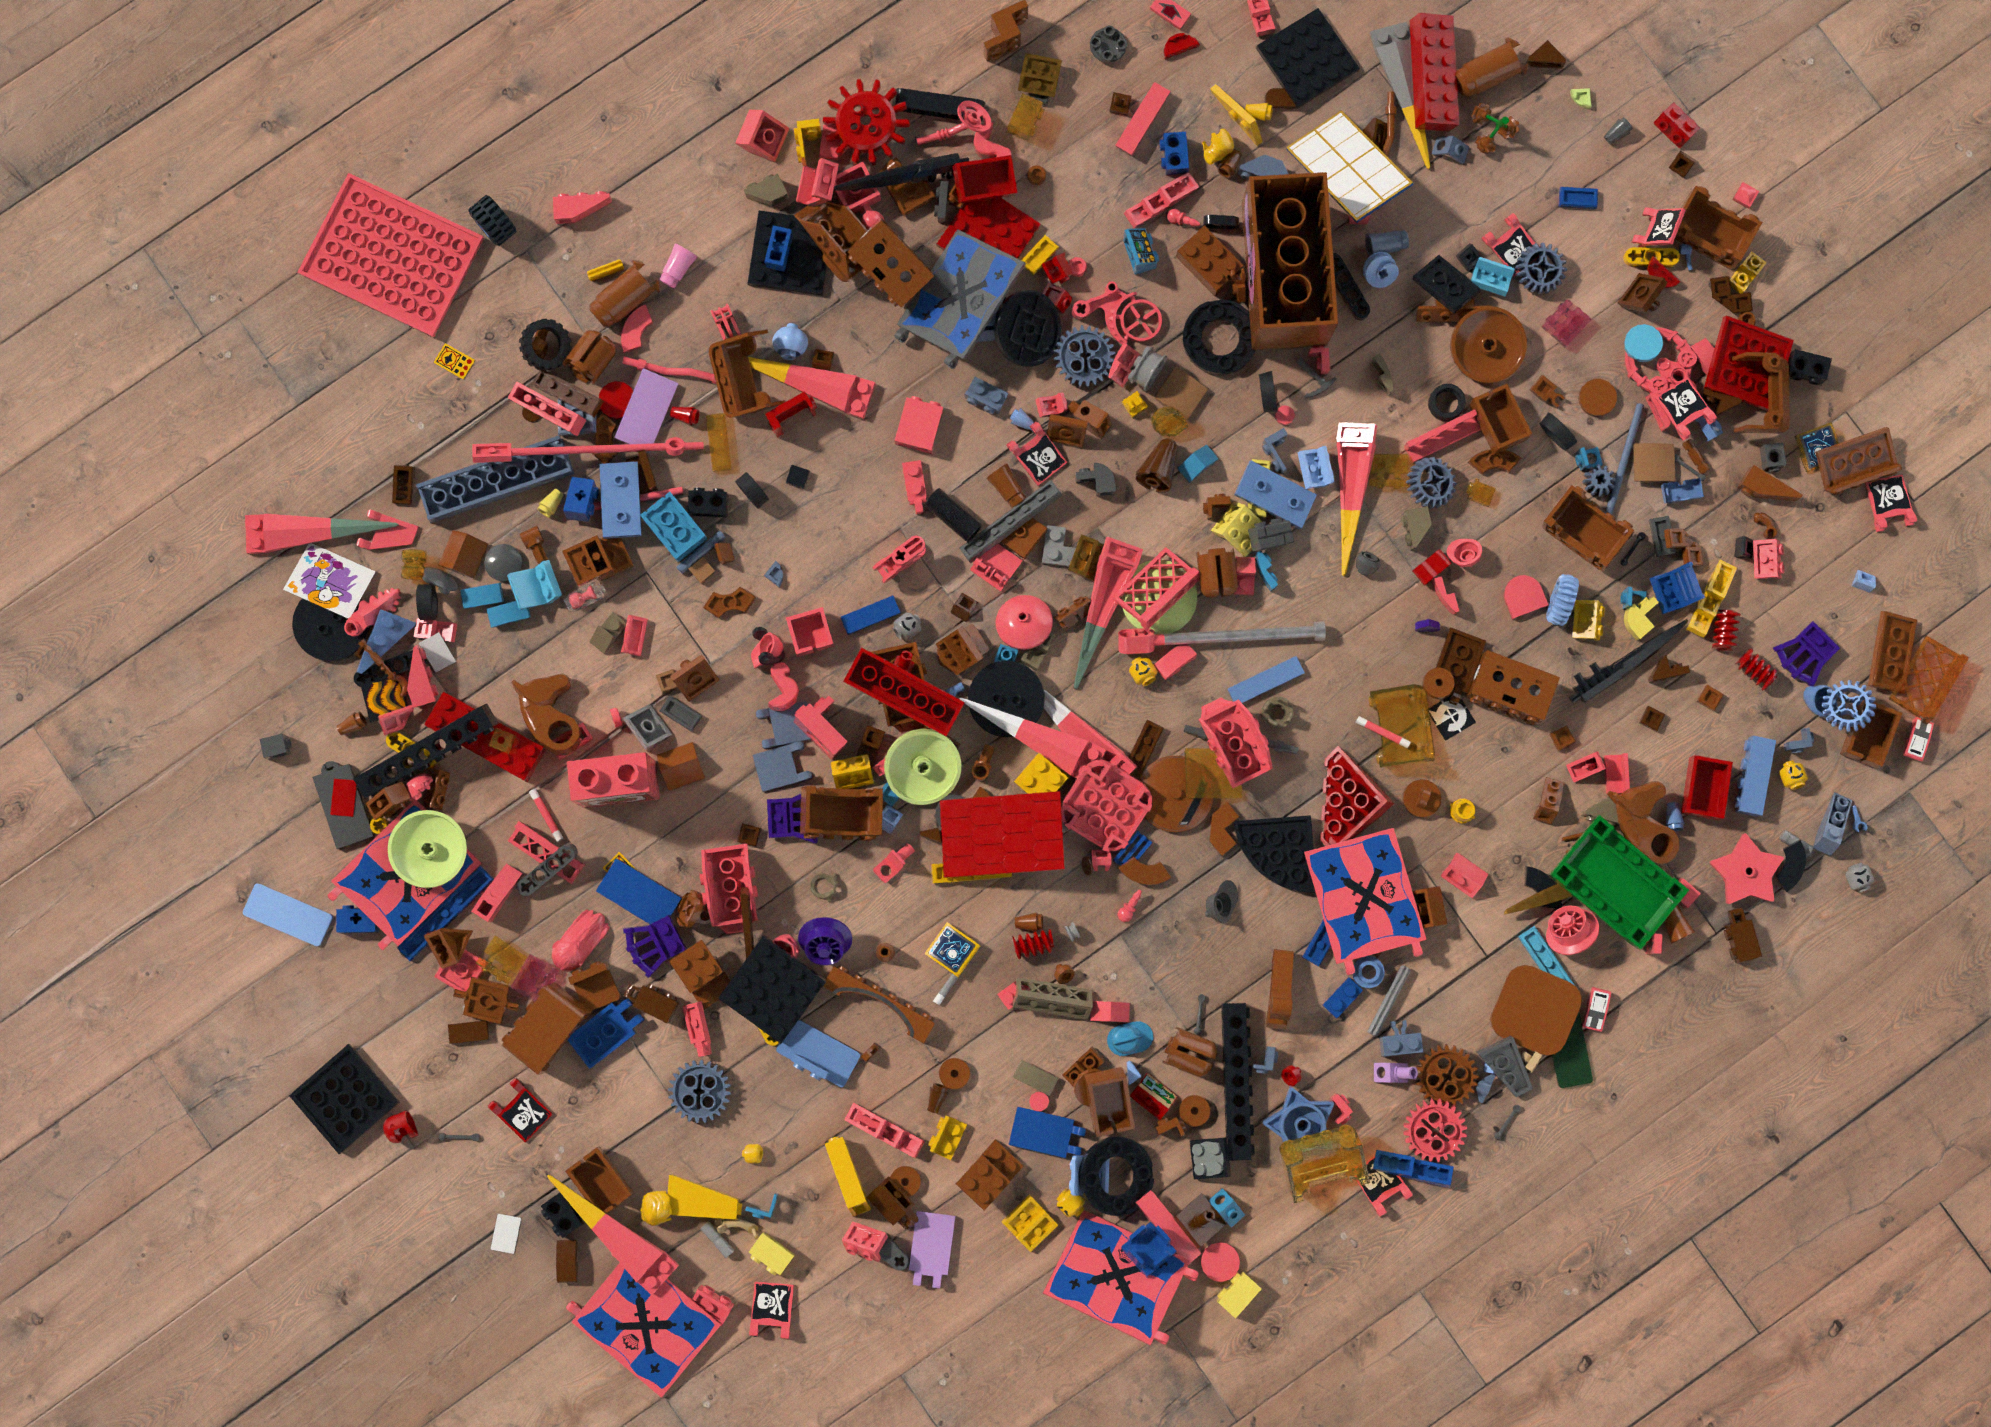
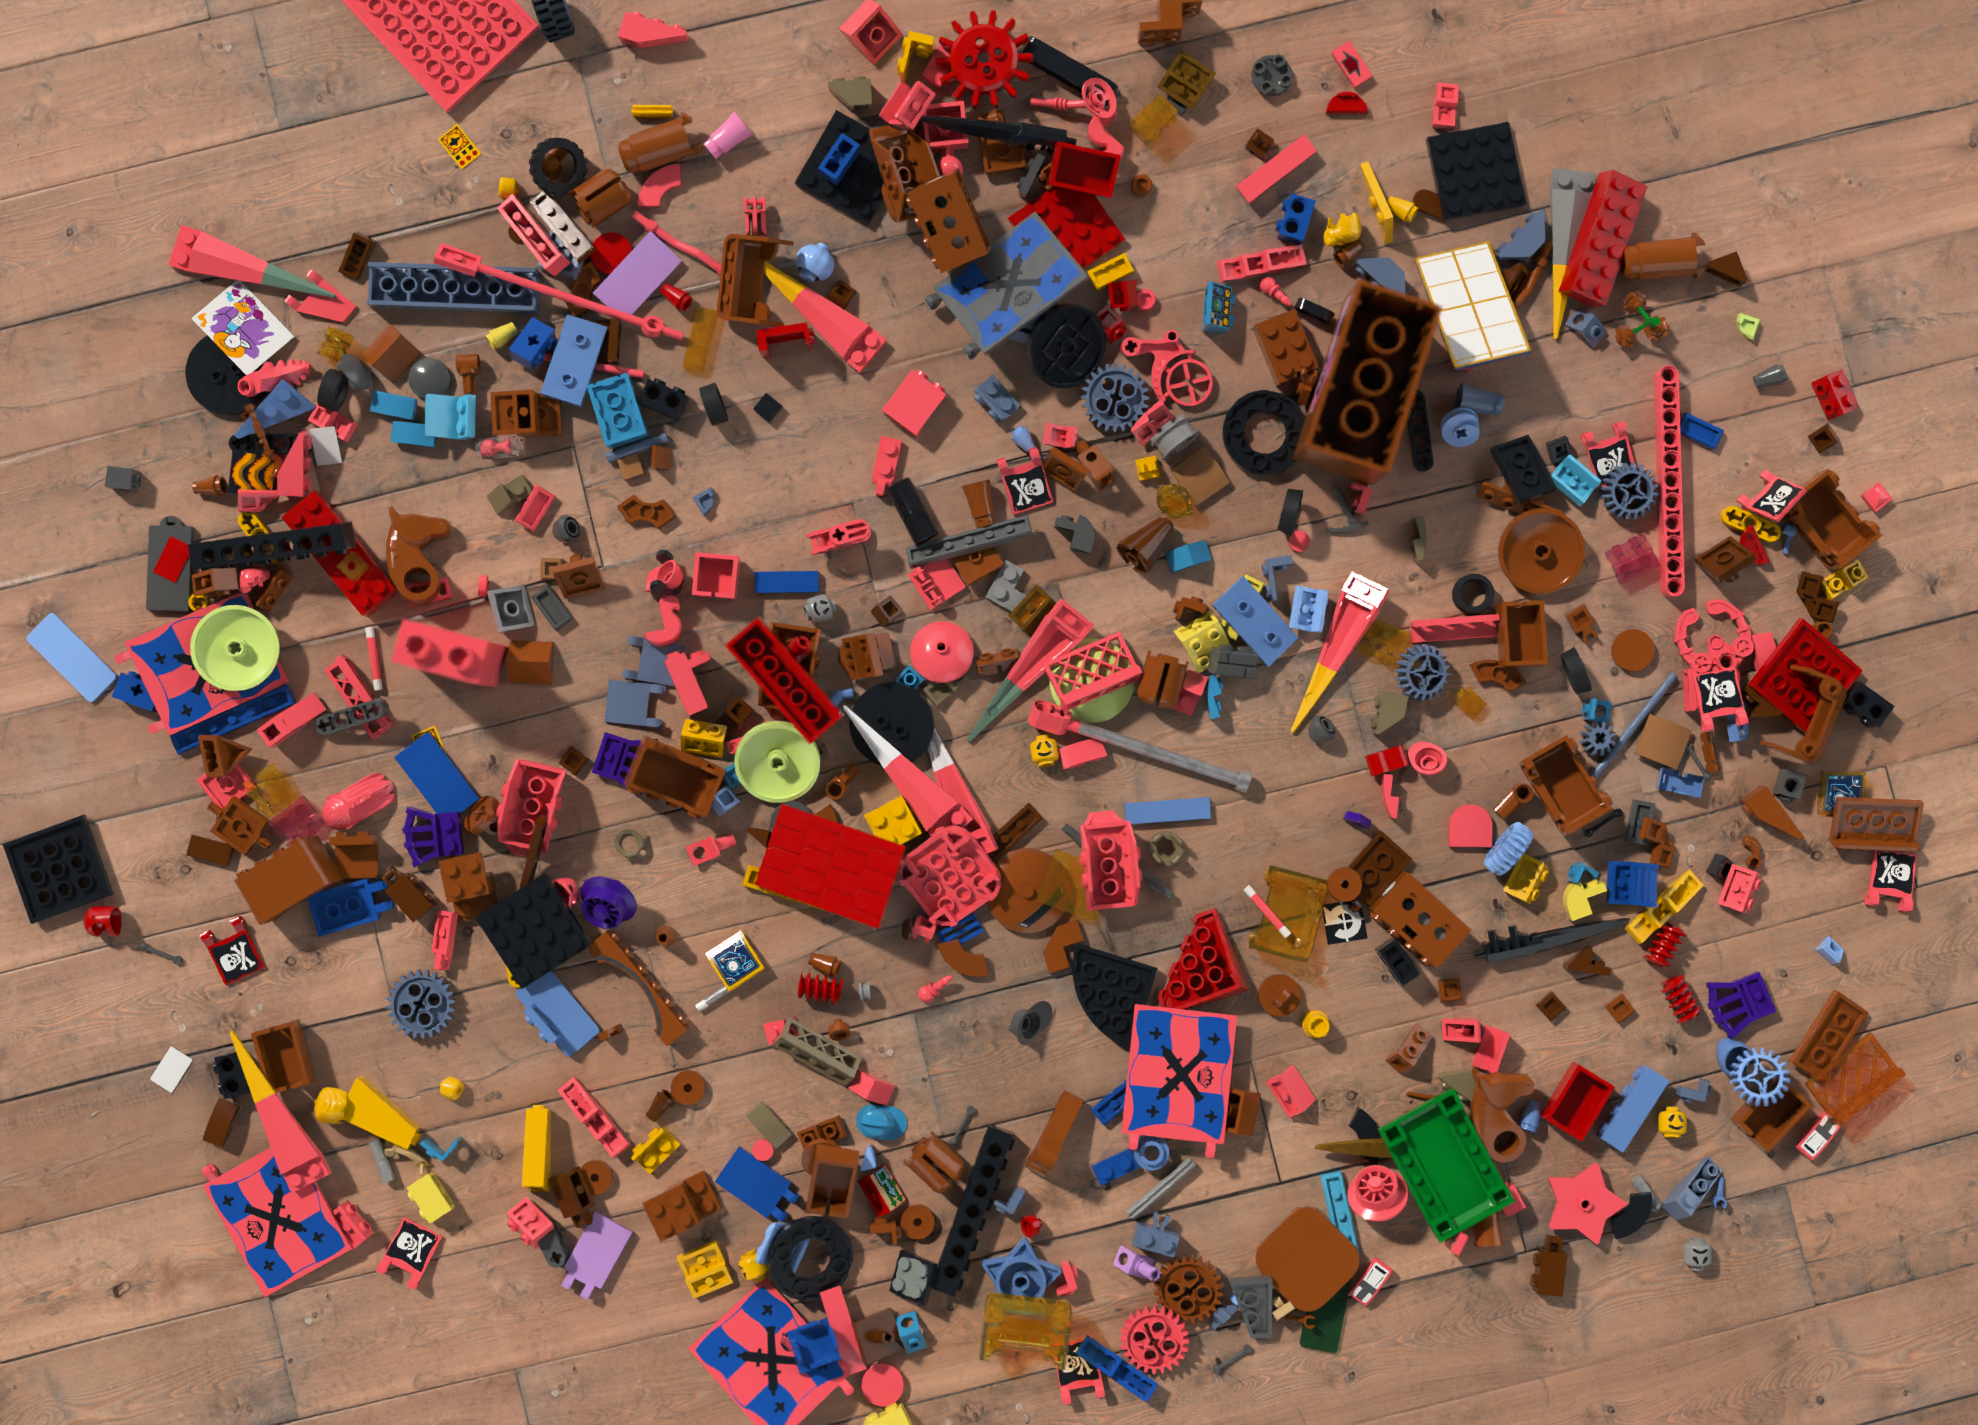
camera: 20 degrees right, 5 degrees up
(508, 379) = (507, 187): none -> yellow piece
(668, 642) = (566, 529): none -> dark grey cone
(1371, 98) = (1525, 240): none -> sand blue slope
(1508, 730) = (1397, 961): none -> black brick
(1550, 561) = (1512, 803): none -> dark orange piece
(1551, 1065) = (1301, 1319): none -> dark orange hand
(1570, 239) = (1674, 472): none -> coral beam
(1643, 343) = (1704, 612): medium azure tile -> none

